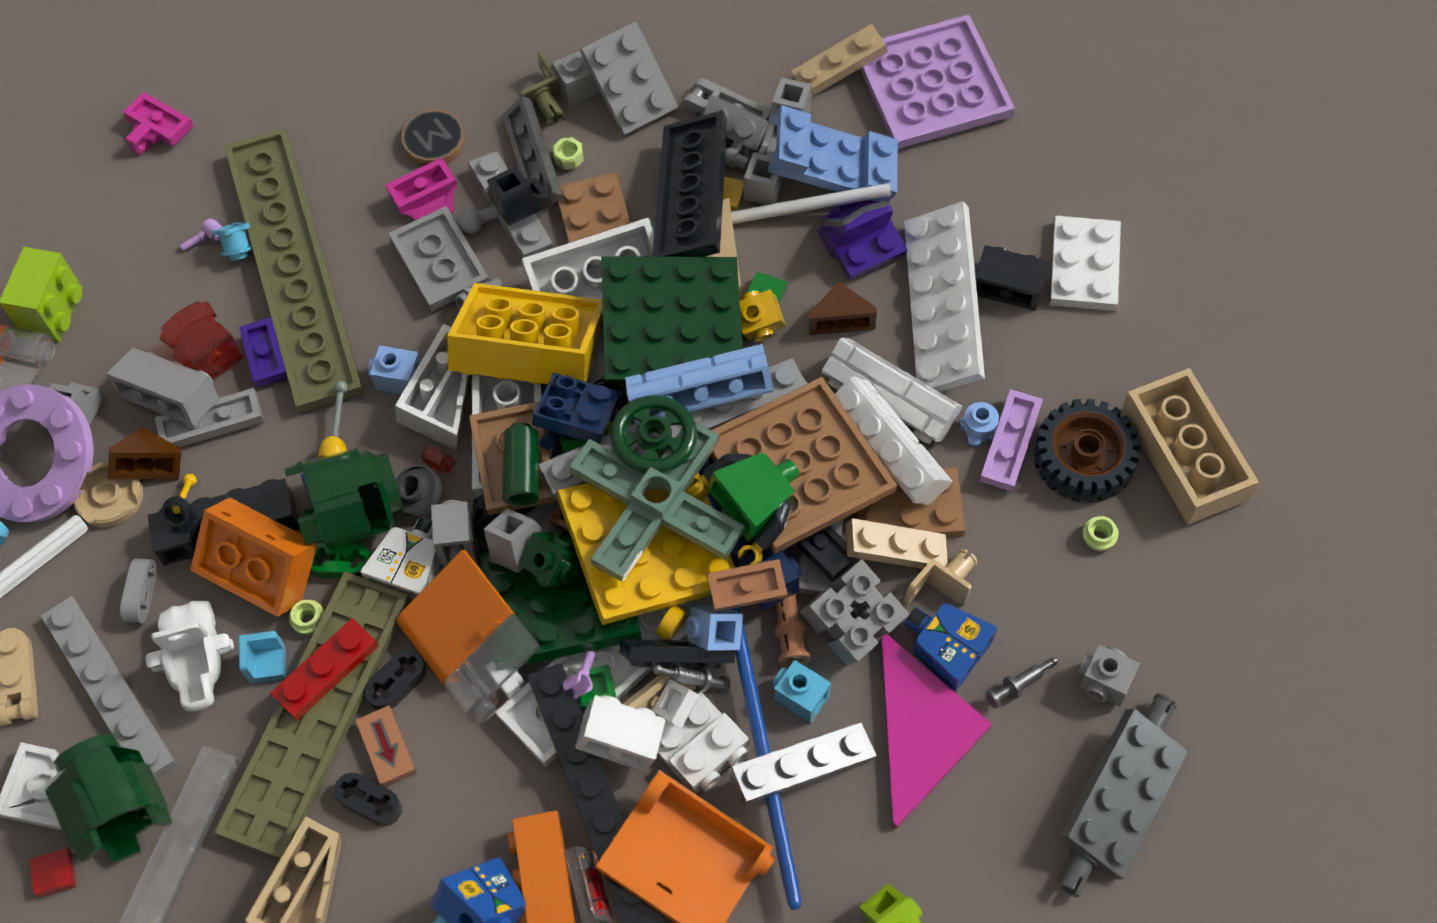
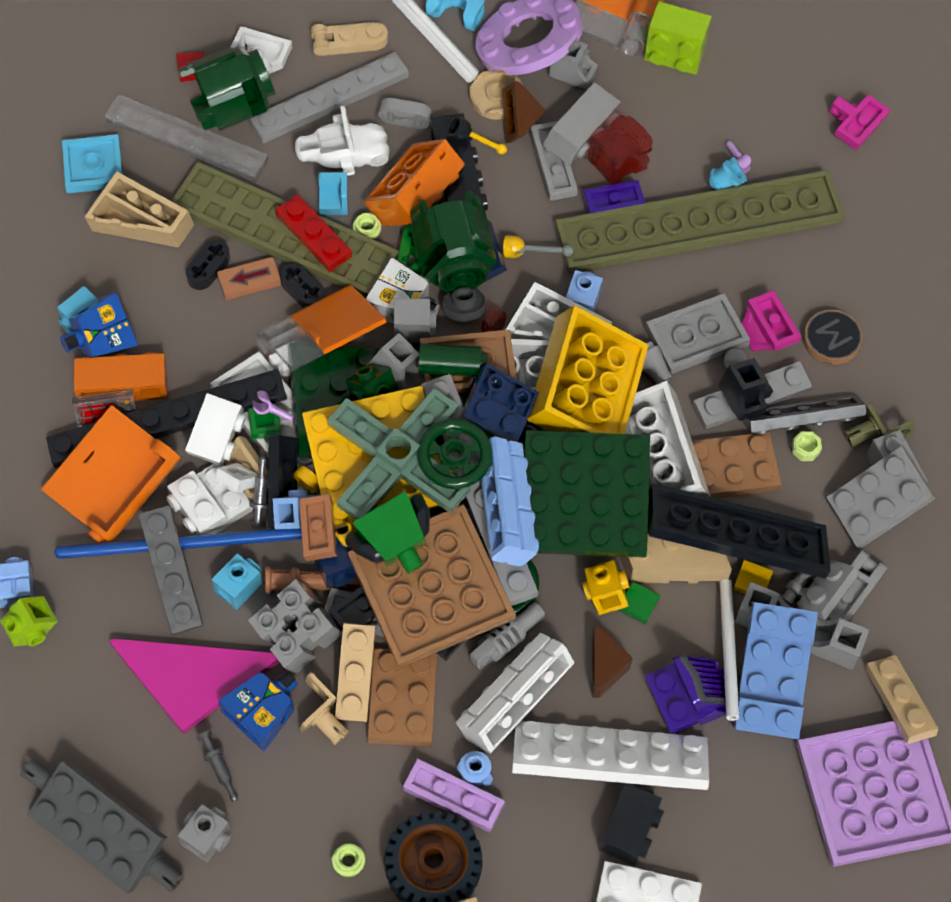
camera: 90 degrees right, 0 degrees up
(893, 442) = (452, 673): white brick -> none

